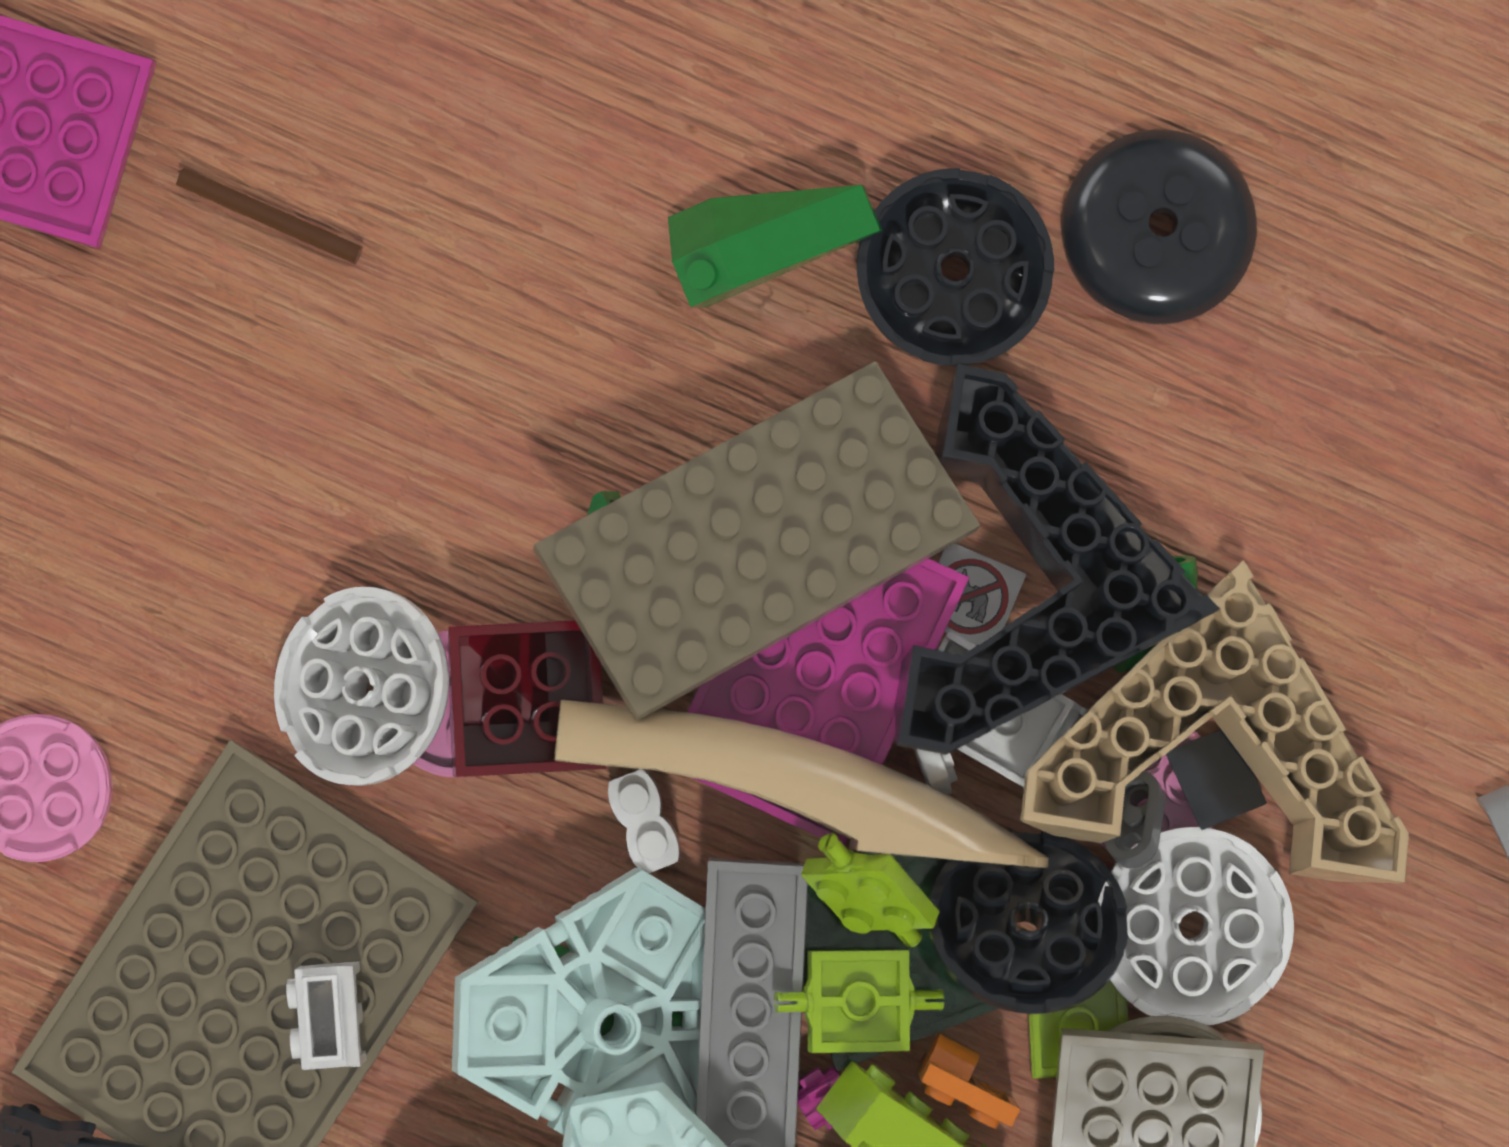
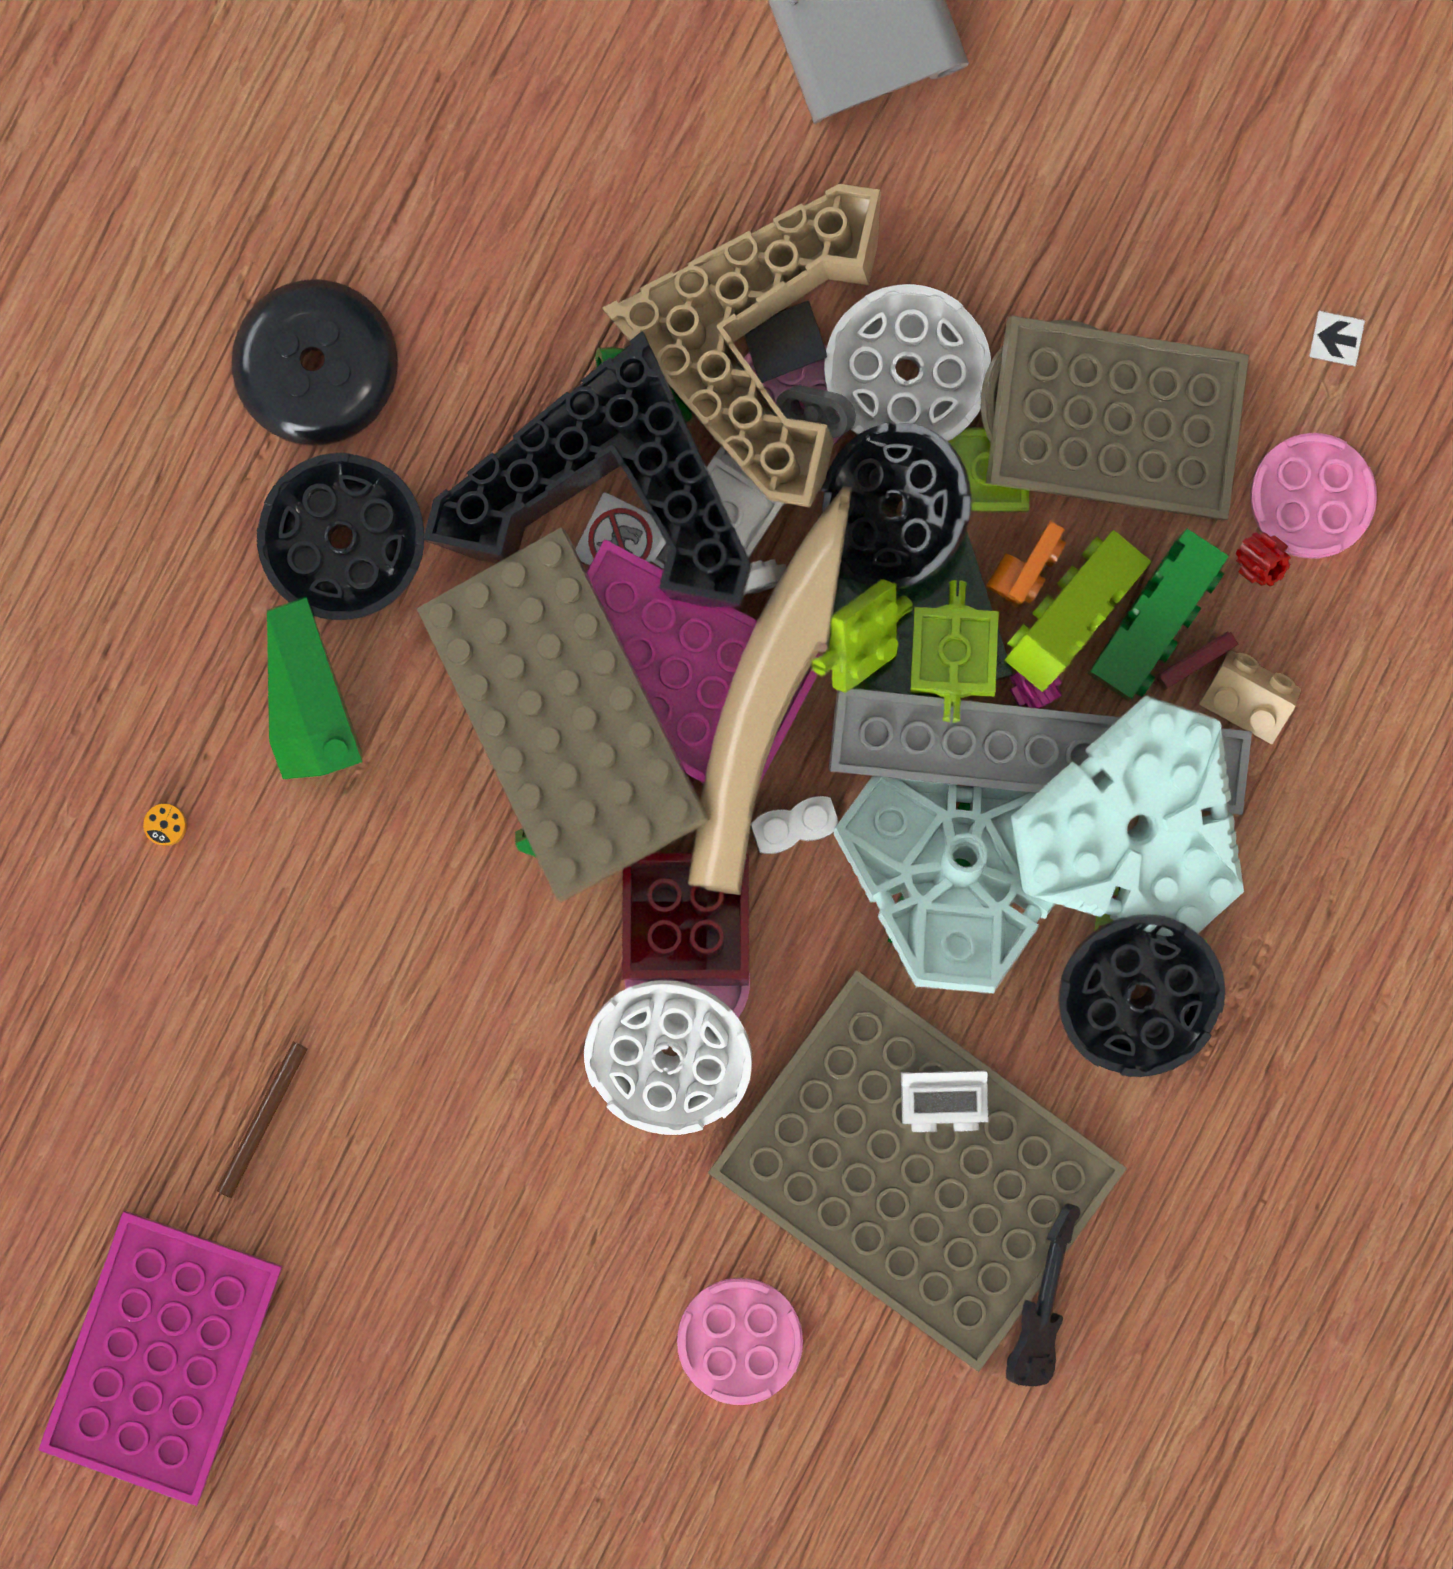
camera: 90 degrees left, 0 degrees up
(607, 83) = (165, 824): none -> light orange tile

